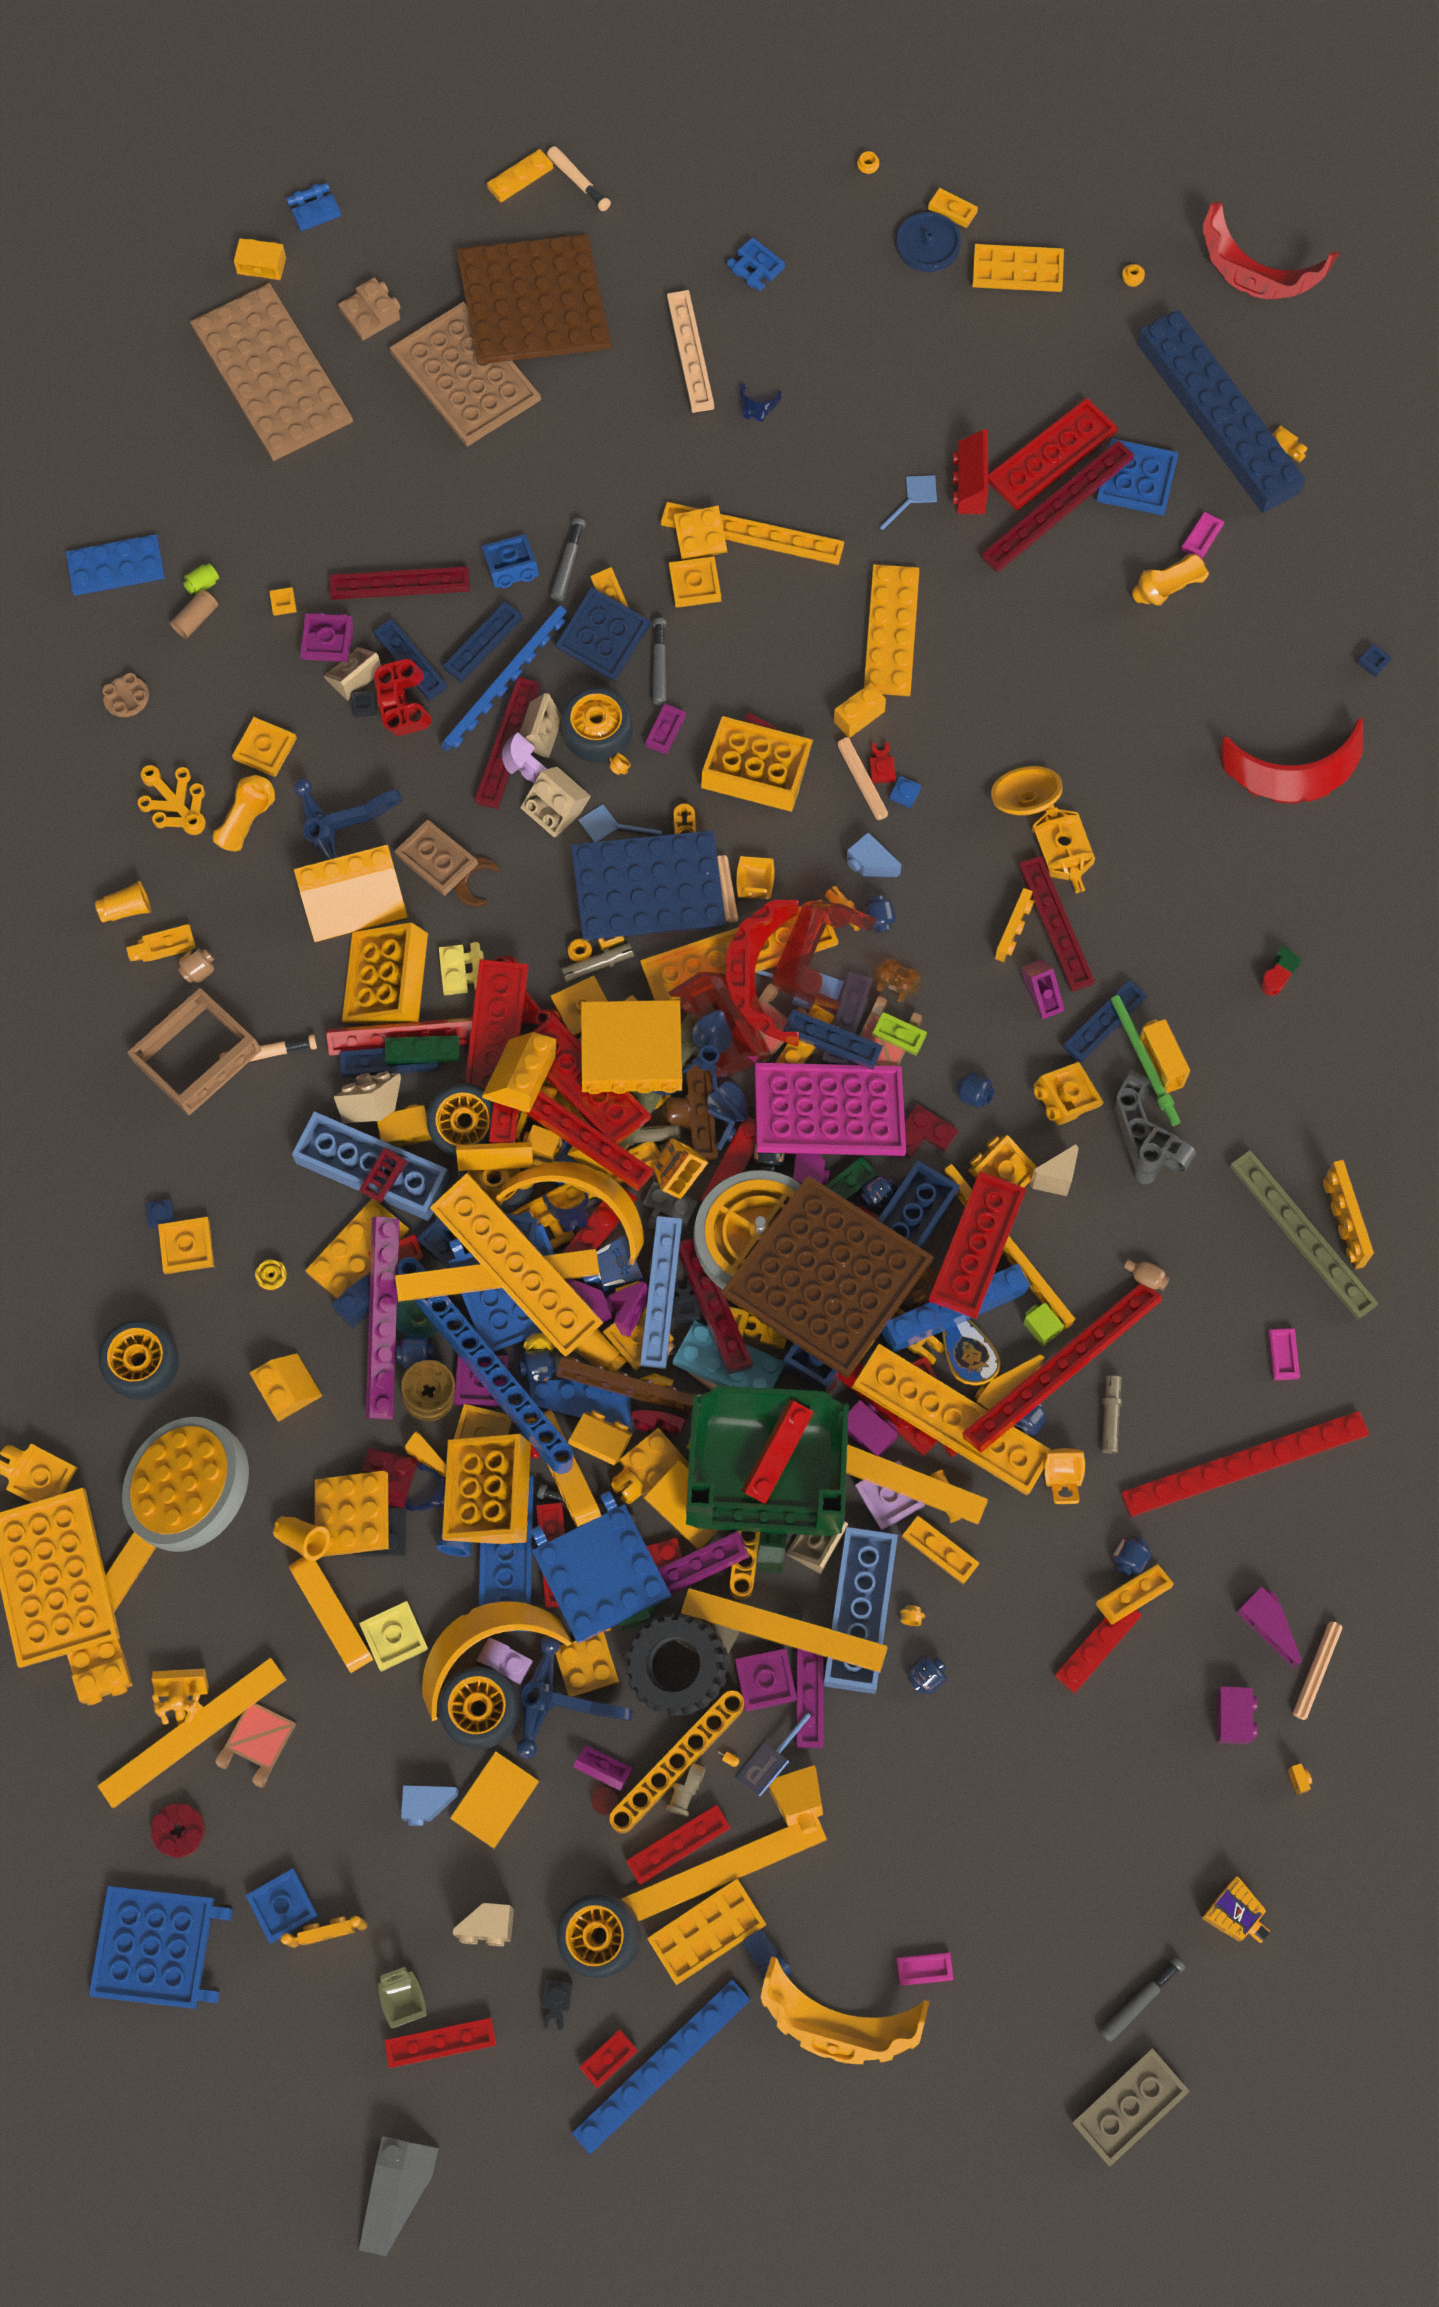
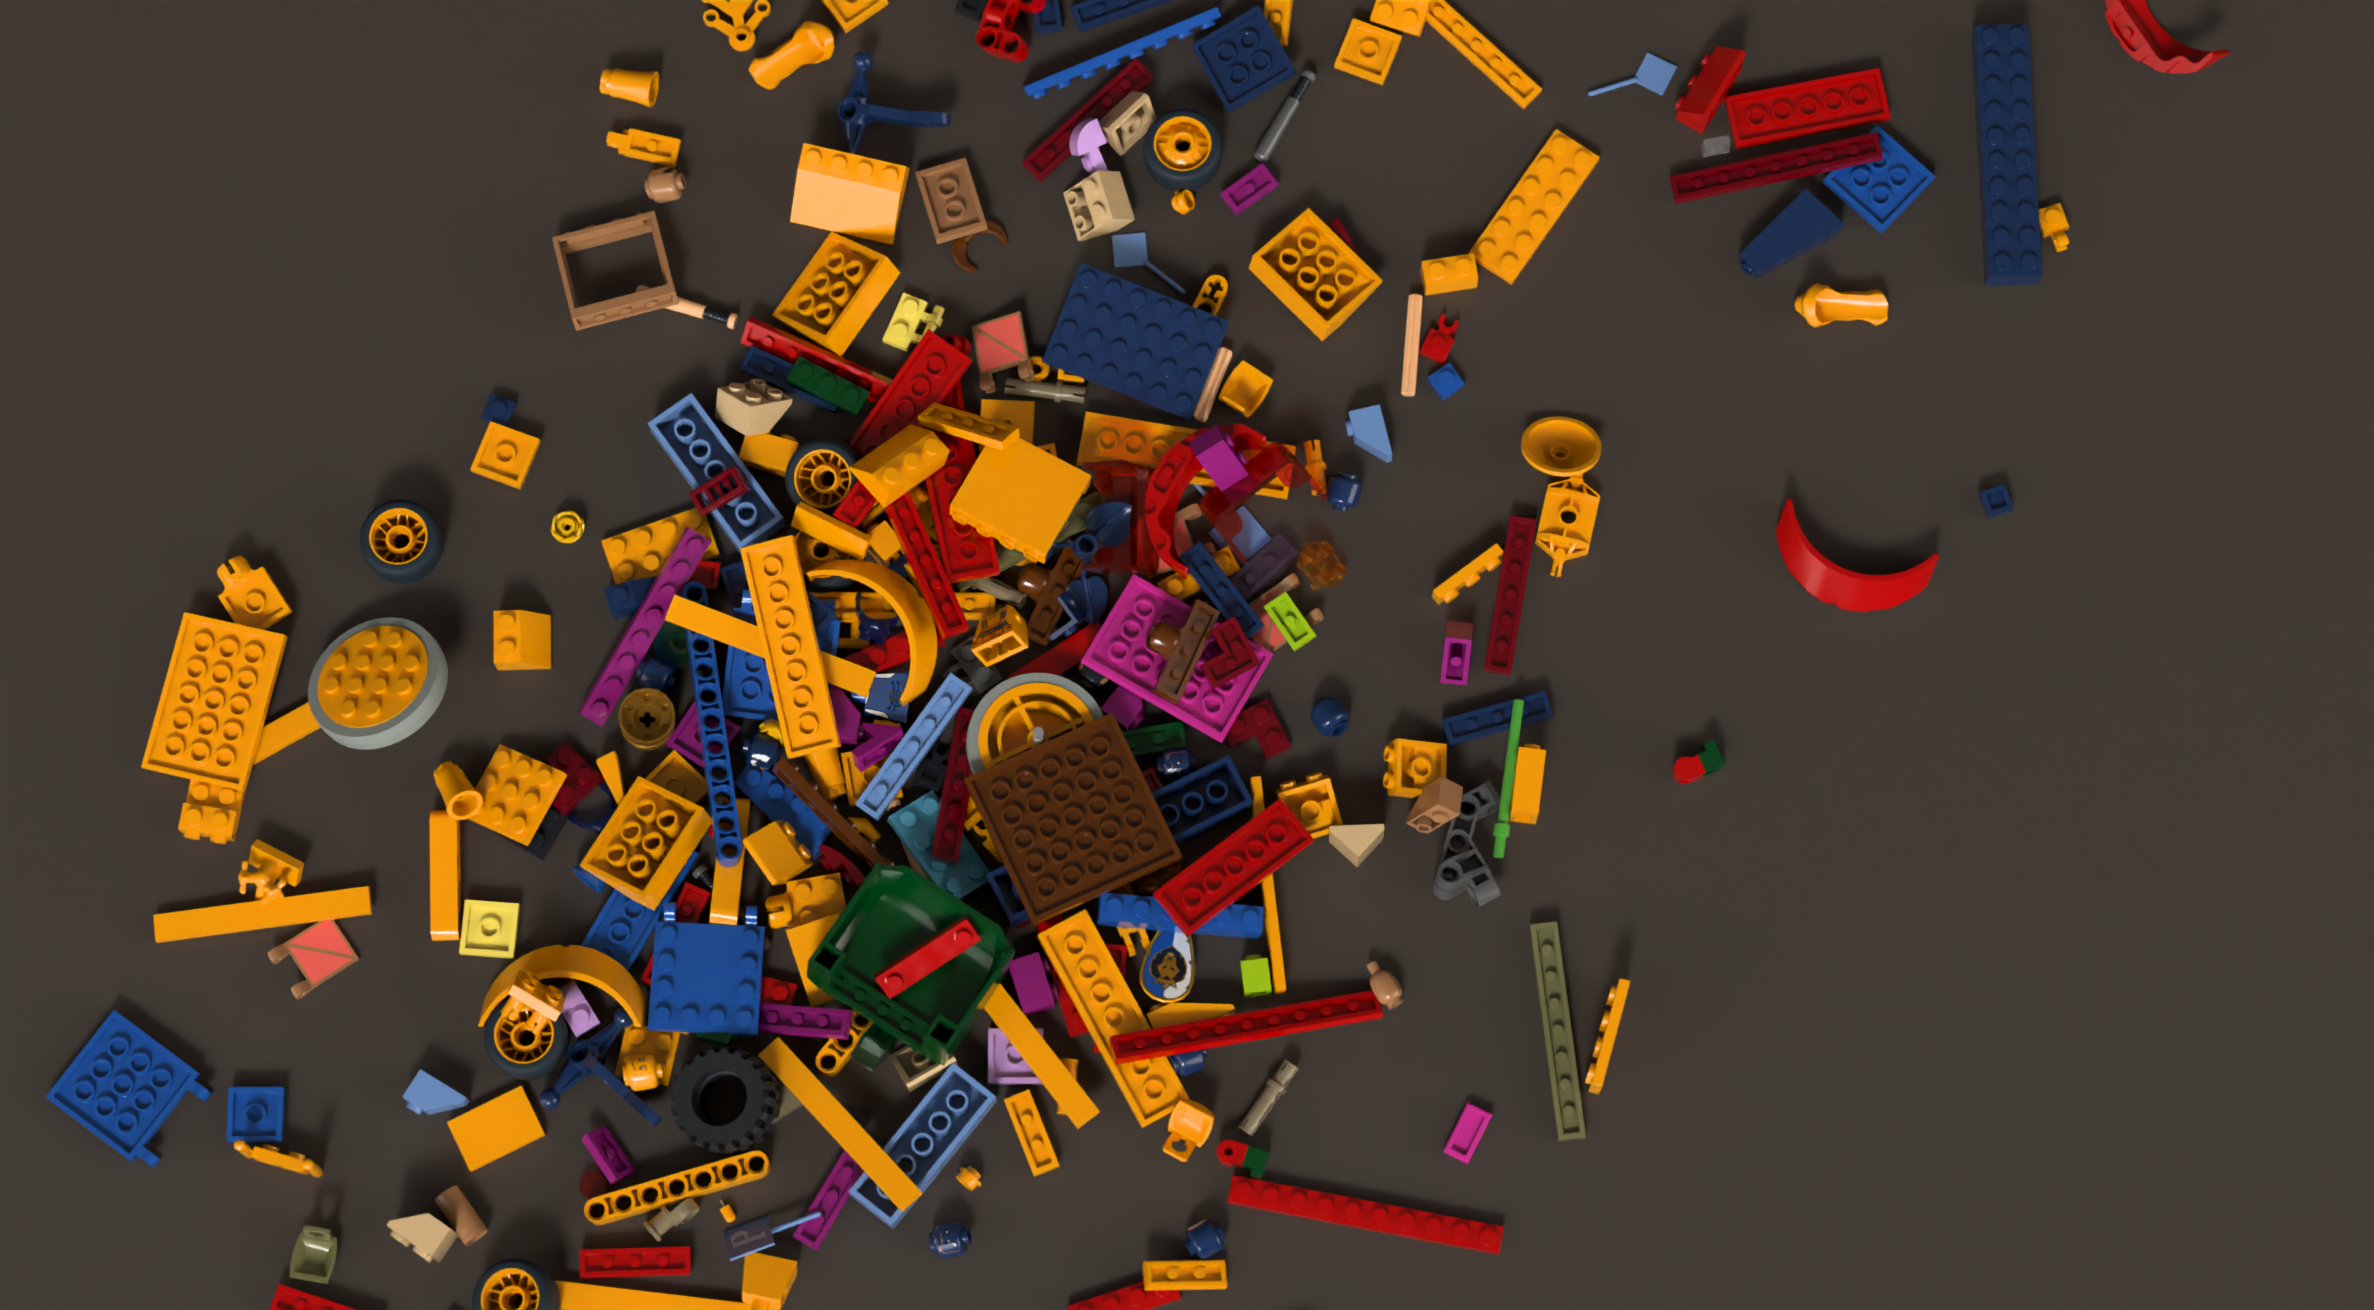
camera: 30 degrees right, 5 degrees up
(164, 1824) = (211, 1008): dark red plate -> none
(480, 1665) = (529, 991): none -> light orange plate
(508, 1890) = (461, 1215): none -> medium nougat pin
(542, 946) = (999, 346): none -> flag
(559, 1013) = (968, 426): none -> light orange plate
(594, 1680) = (642, 1072): none -> light orange head
(766, 1680) = (801, 1160): magenta plate -> none
(771, 934) = (1219, 457): none -> magenta brick
(830, 1098) = (1180, 648): none -> reddish brown plate
(876, 1079) = (1236, 654): none -> dark red plate
(1001, 515) = (1715, 146): none -> clear tile
(1100, 545) = (1792, 233): none -> dark blue slope
(1103, 1111) = (1436, 805): none -> medium nougat slope
(1122, 1471) = (1242, 1155): none -> leg
(1202, 535) = (1907, 276): dark pink tile -> none

